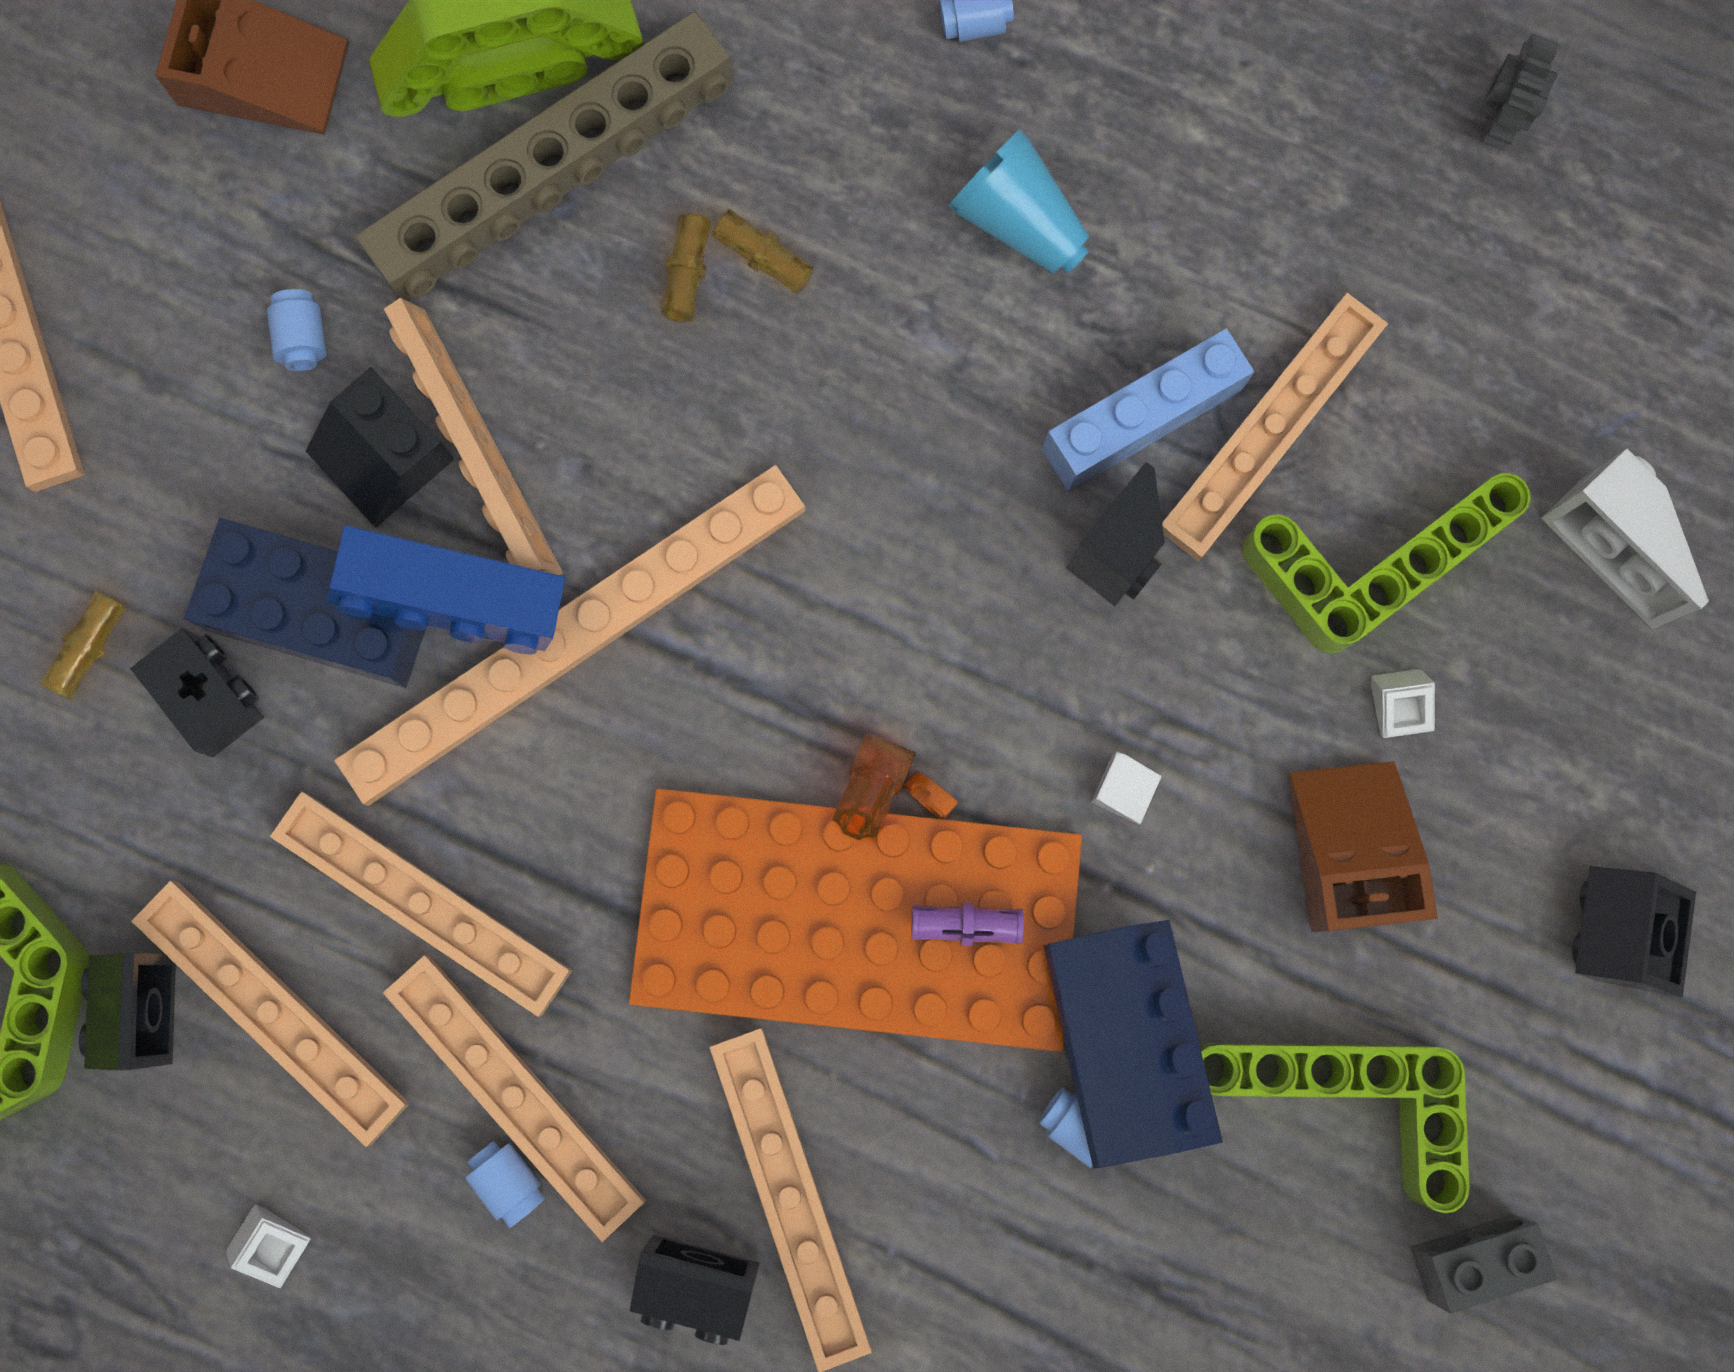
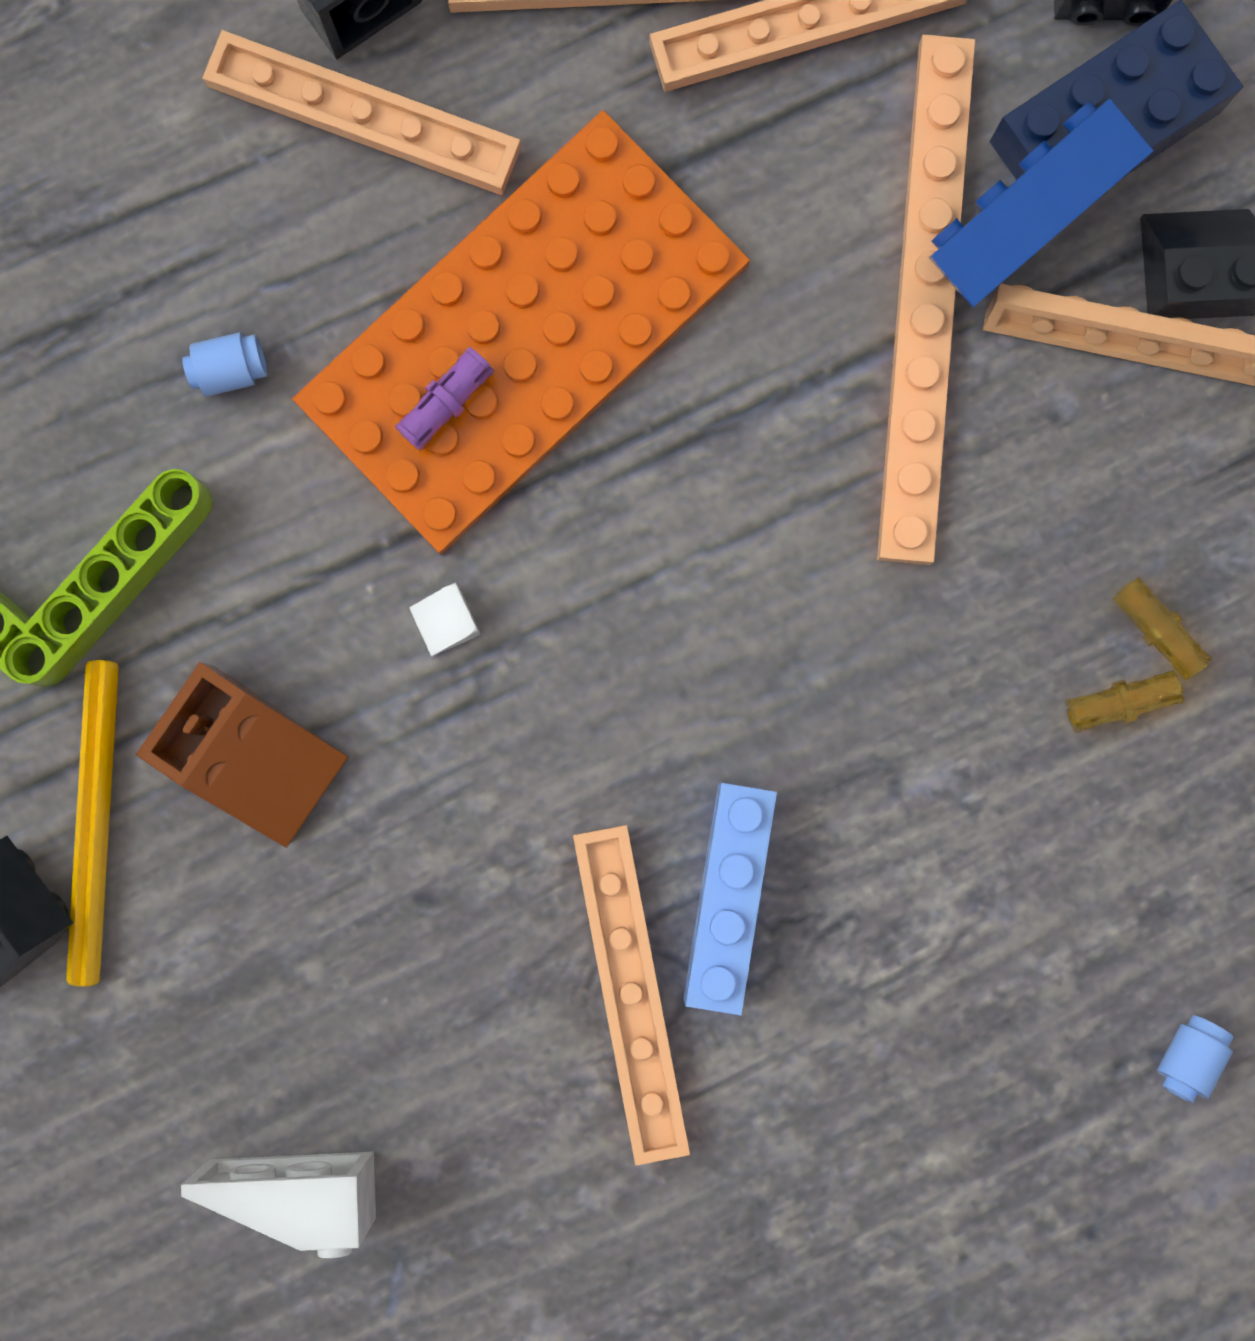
camera: 135 degrees right, 5 degrees up
(874, 780) = (617, 431): clear orange piece -> none
(930, 795) = (560, 464): orange tile -> none
(1024, 207) = (985, 944): medium azure cone -> none
(1122, 545) = (636, 775): black slope -> none
(1132, 1044) = (248, 443): dark blue slope -> none
(1394, 574) = (434, 982): lime beam -> none
(1404, 702) = (325, 899): white slope -> none
(1503, 924) = (92, 823): none -> yellow axle

